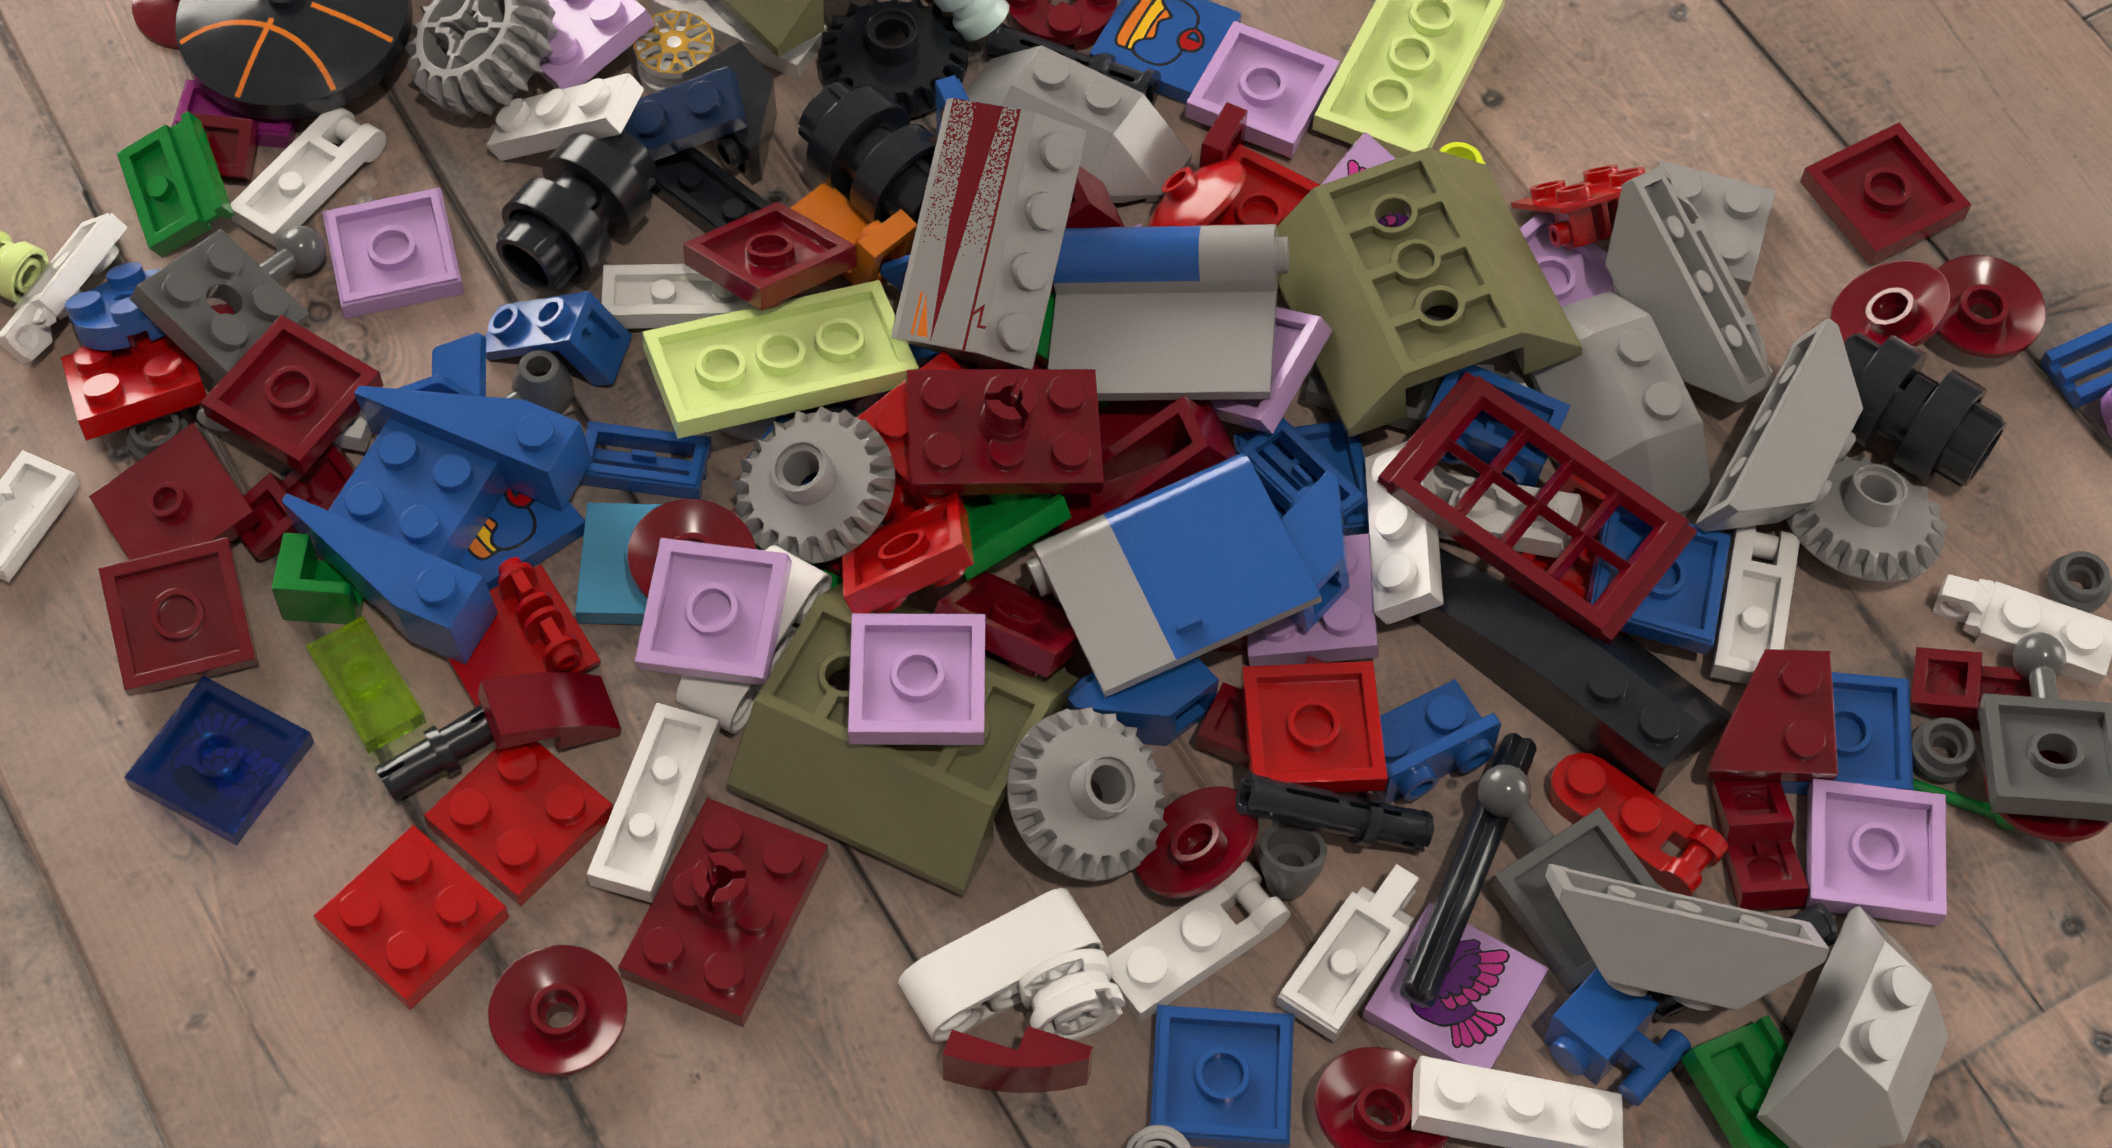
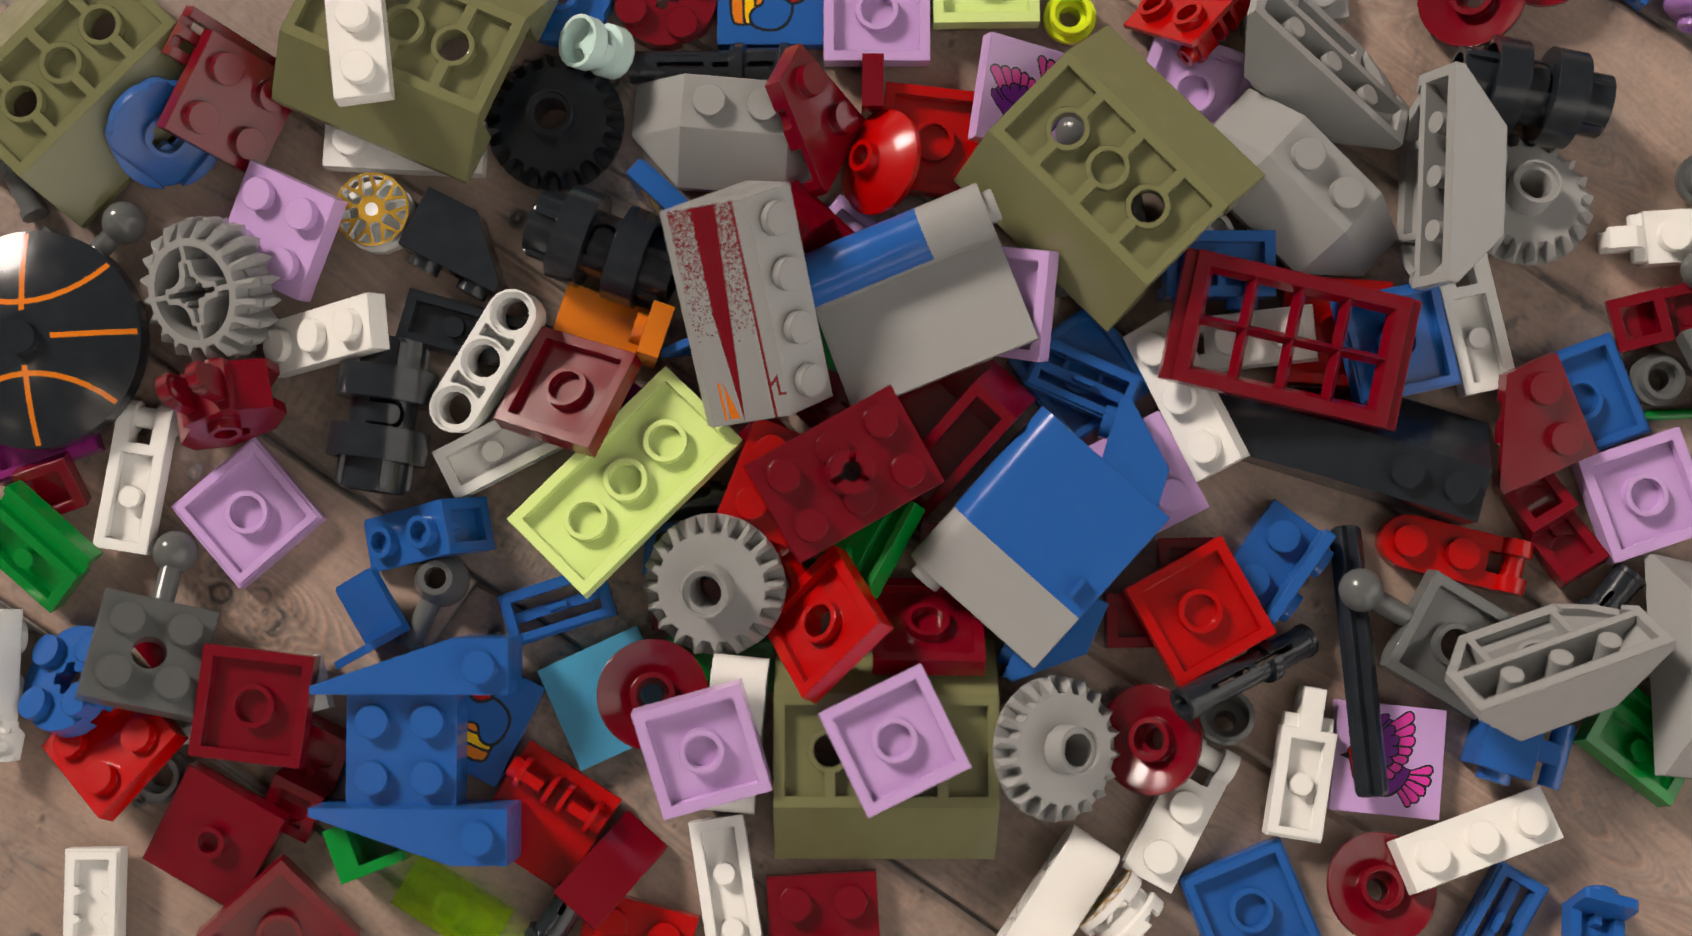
camera: 25 degrees left, 25 degrees up
(432, 125) = (222, 401): none -> dark red hinge
(688, 113) = (426, 283): dark blue plate -> none
(719, 181) = (464, 374): none -> white beam
(1148, 128) = (813, 115): none -> dark red wing

